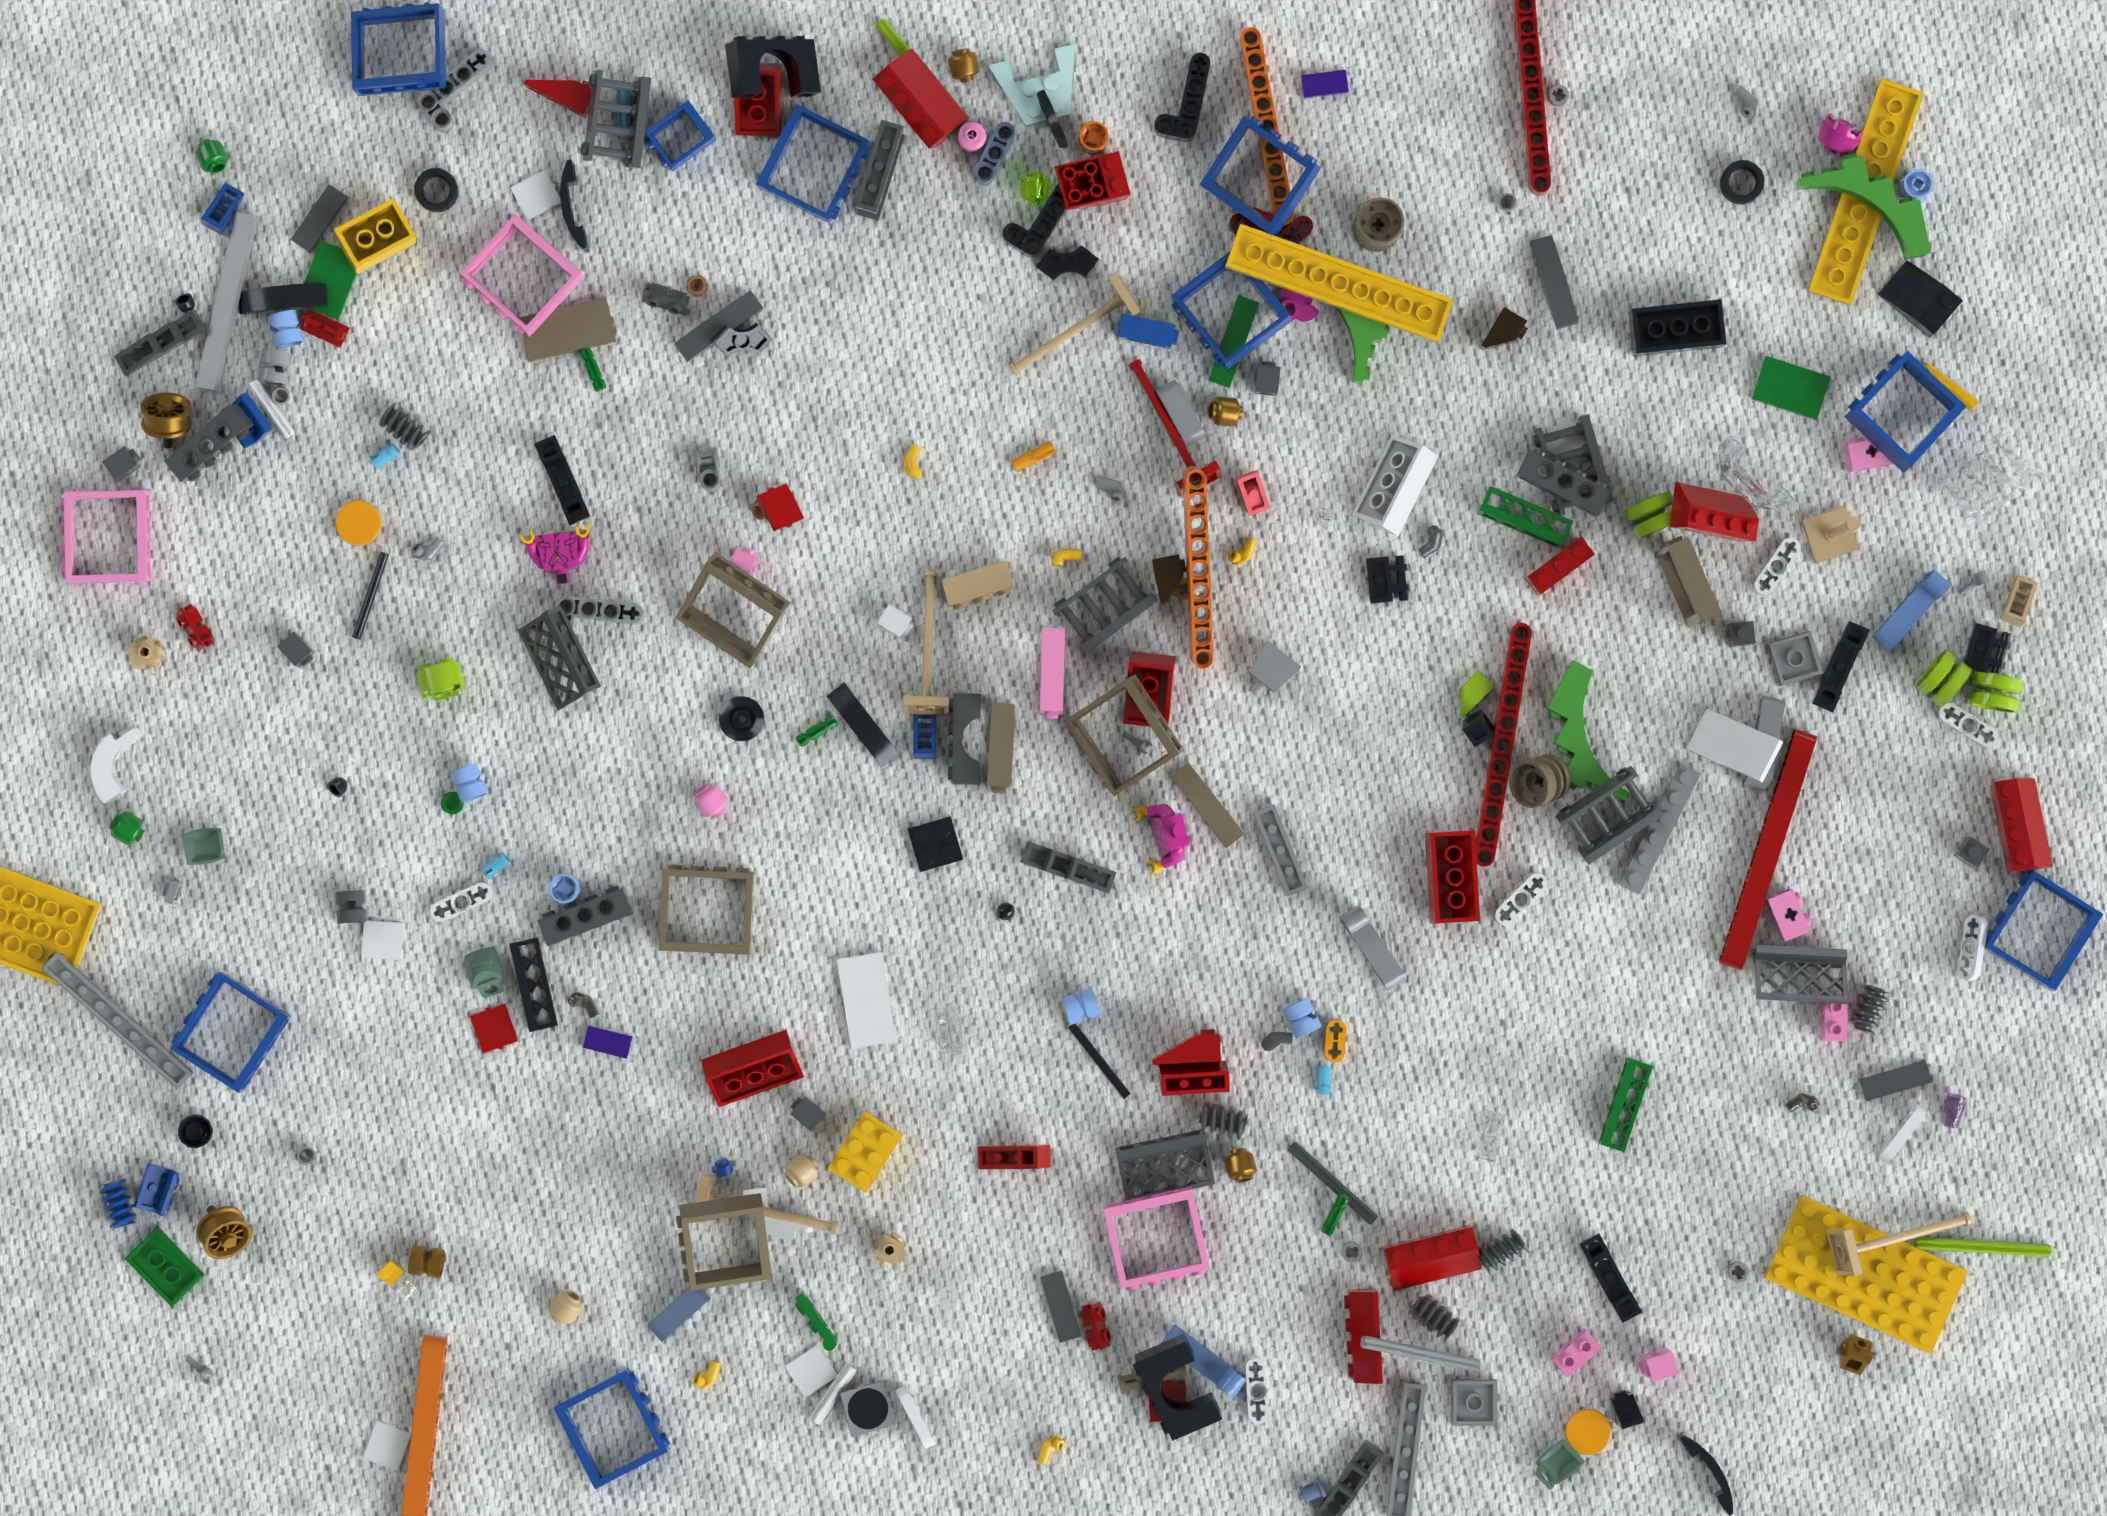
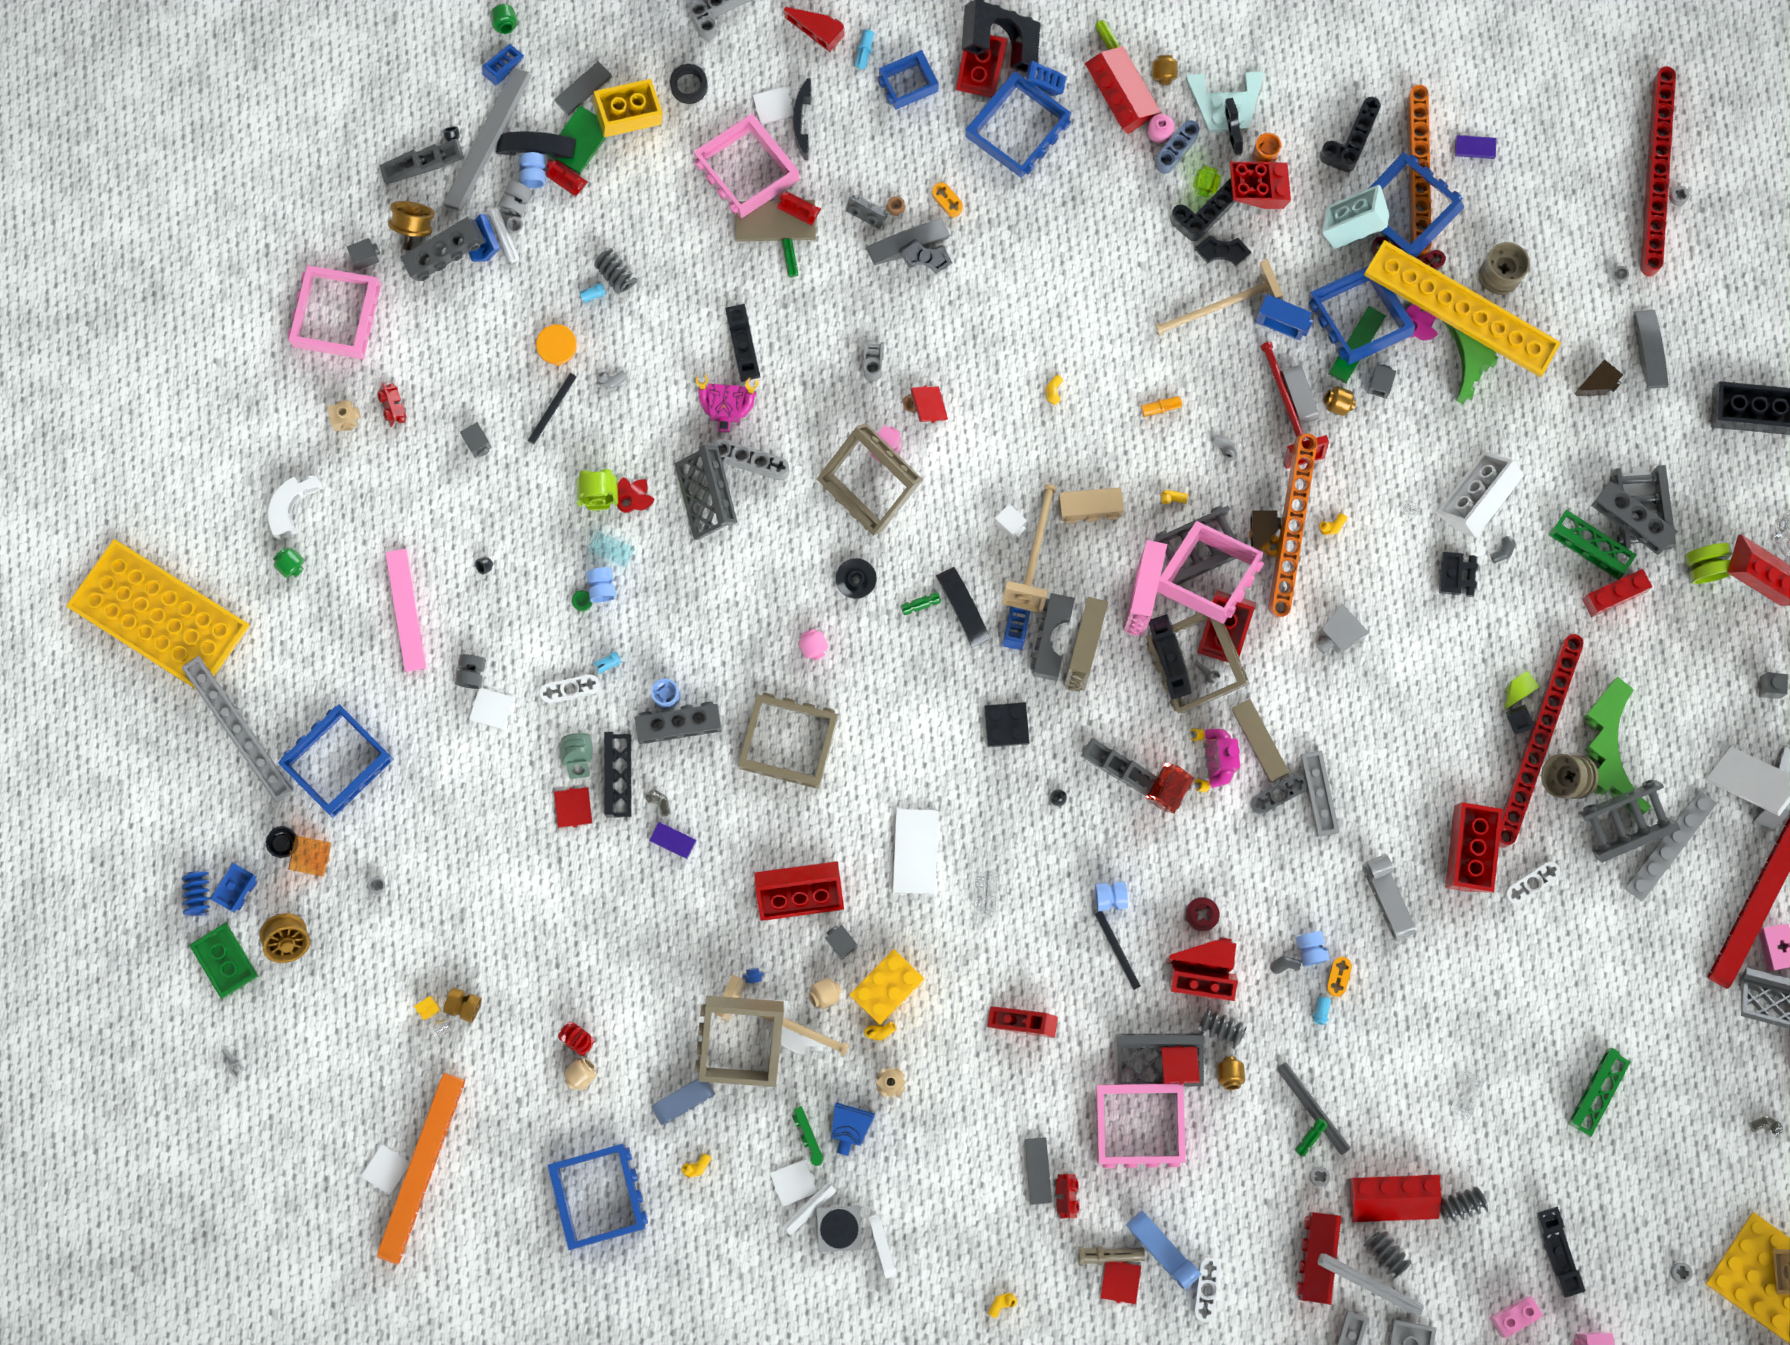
camera: 10 degrees right, 10 degrees down
(172, 891) = (315, 626): light grey plate -> none
(203, 846) = (352, 592): sand green piece -> none
(228, 1139) = (309, 856): none -> clear orange piece
(265, 852) = (405, 610): none -> bright pink tile
(471, 740) = (611, 549): none -> clear light blue tile
(482, 671) = (635, 493): none -> red plate
(553, 1272) = (576, 1038): none -> red gear
(590, 312) = (798, 208): none -> red hinge
(637, 111) = (876, 52): dark grey fence -> none
(756, 262) = (944, 202): none -> light orange beam
(846, 104) = (1057, 79): none -> blue slope
(857, 1302) = (850, 1126): none -> blue torso
(867, 1199) = (879, 1033): none -> yellow arm
(879, 170) = (1076, 136): dark grey fence -> none
(1095, 739) = (1171, 656): none -> black slope
(1121, 878) = (1170, 788): none -> clear red brick
(1129, 602) = (1224, 543): none -> bright pink window
(1177, 1417) = (1131, 1299): black arch -> none
(1185, 1169) = (1180, 1065): none -> red piece
(1191, 1001) = (1212, 913): none -> dark red gear
(1204, 200) = (1356, 217): none -> light aqua slope
(1252, 492) = (1351, 473): coral slope -> none
(1254, 853) = (1295, 792): none -> dark grey beam
(1687, 581) = (1749, 621): dark tan window -> none

